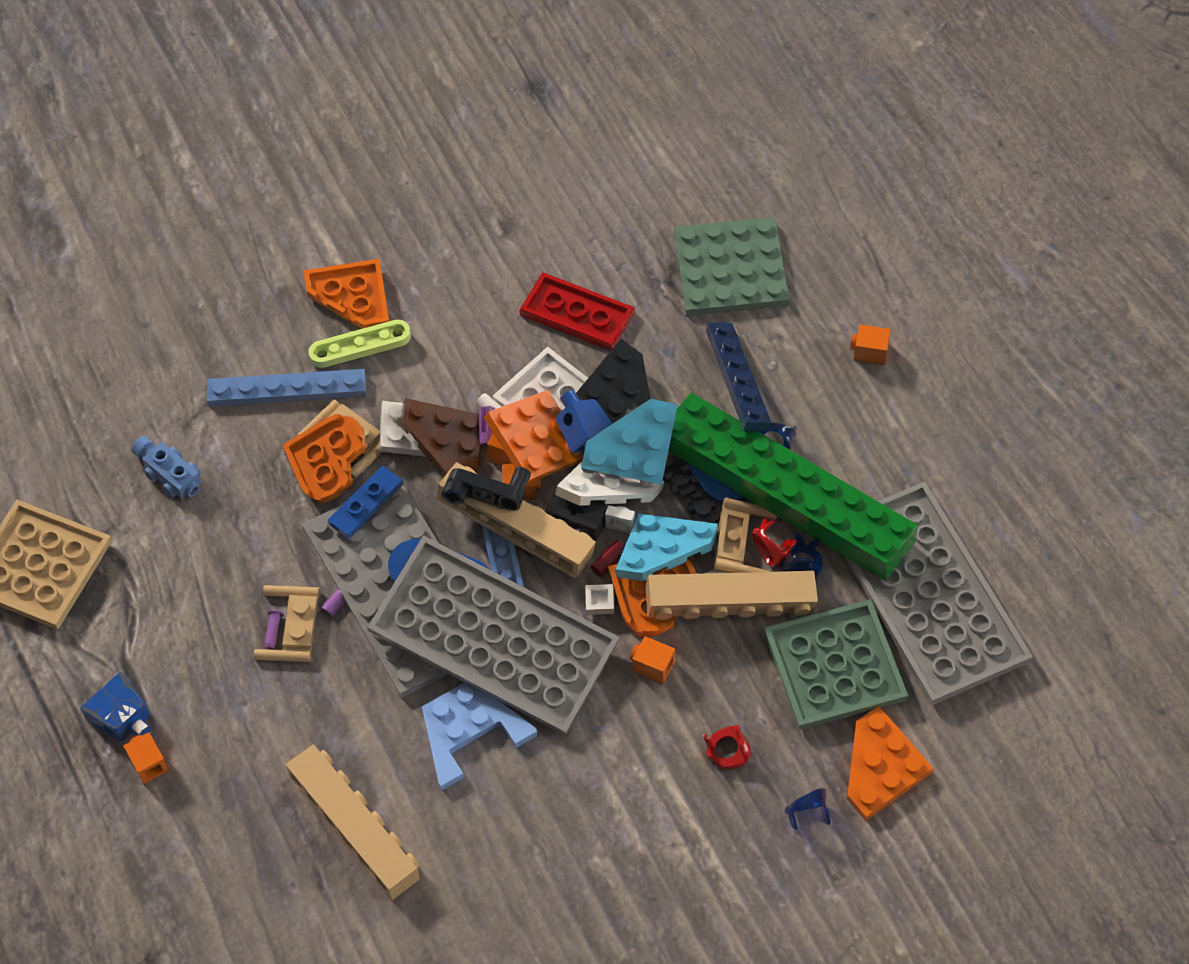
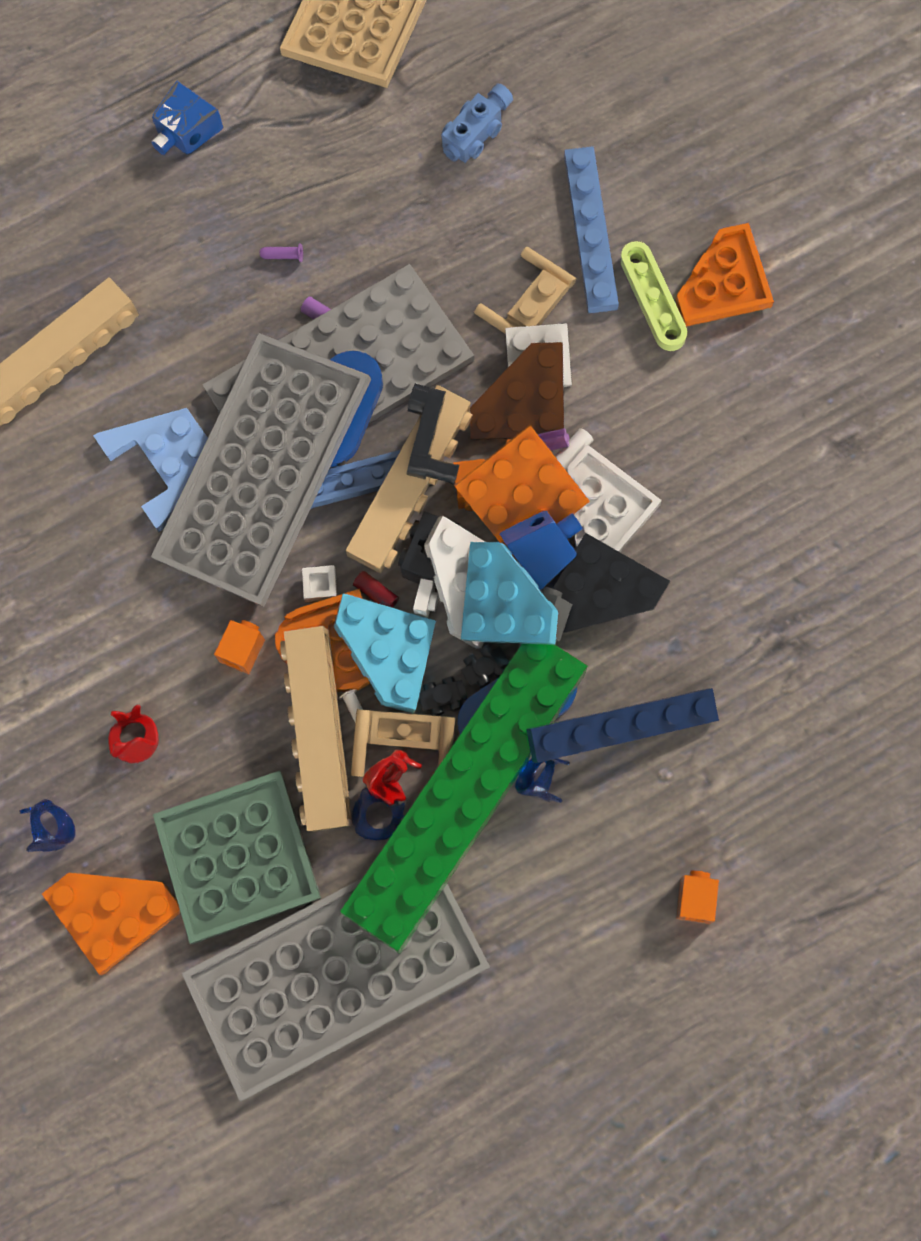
camera: 90 degrees right, 15 degrees up
(146, 757) = (130, 152): orange brick -> none
(298, 625) = (290, 277): tan plate -> none
(324, 456) = (494, 273): orange plate -> none
(365, 502) = (431, 320): blue plate -> none
(577, 311) = (723, 534): red tile -> none
(731, 266) = (811, 717): sand green plate -> none

